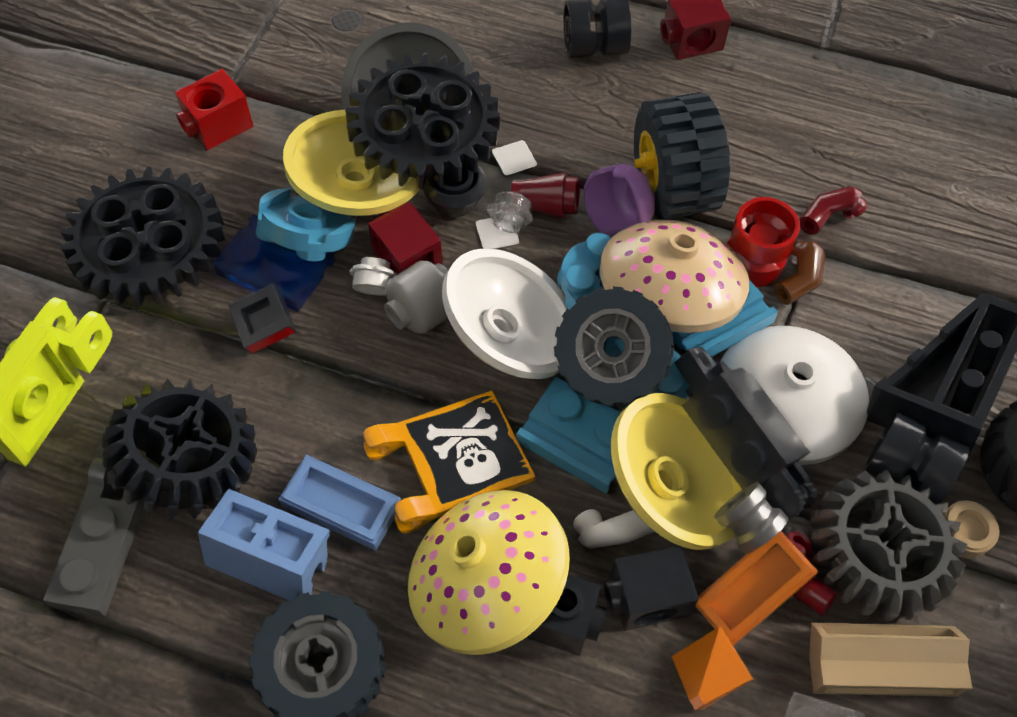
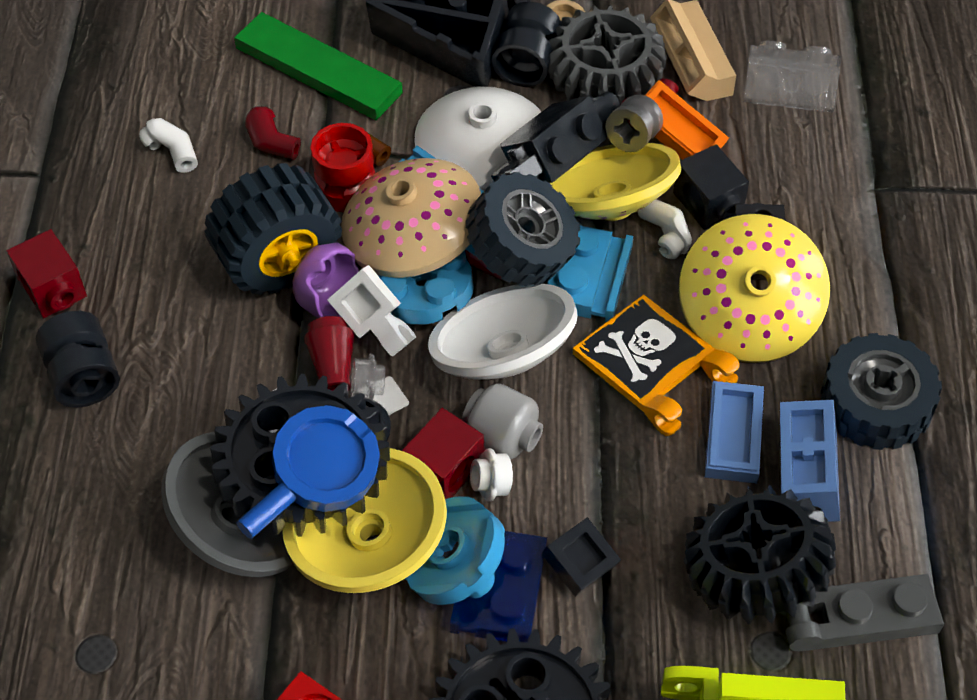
camera: 105 degrees left, 5 degrees down
(387, 108) = (321, 462): none -> blue piece
(578, 218) = (367, 306): none -> white plate
(710, 669) = (754, 144): orange slope -> none
(839, 136) = (178, 141): none -> white arm
(923, 269) = (319, 65): none -> green tile

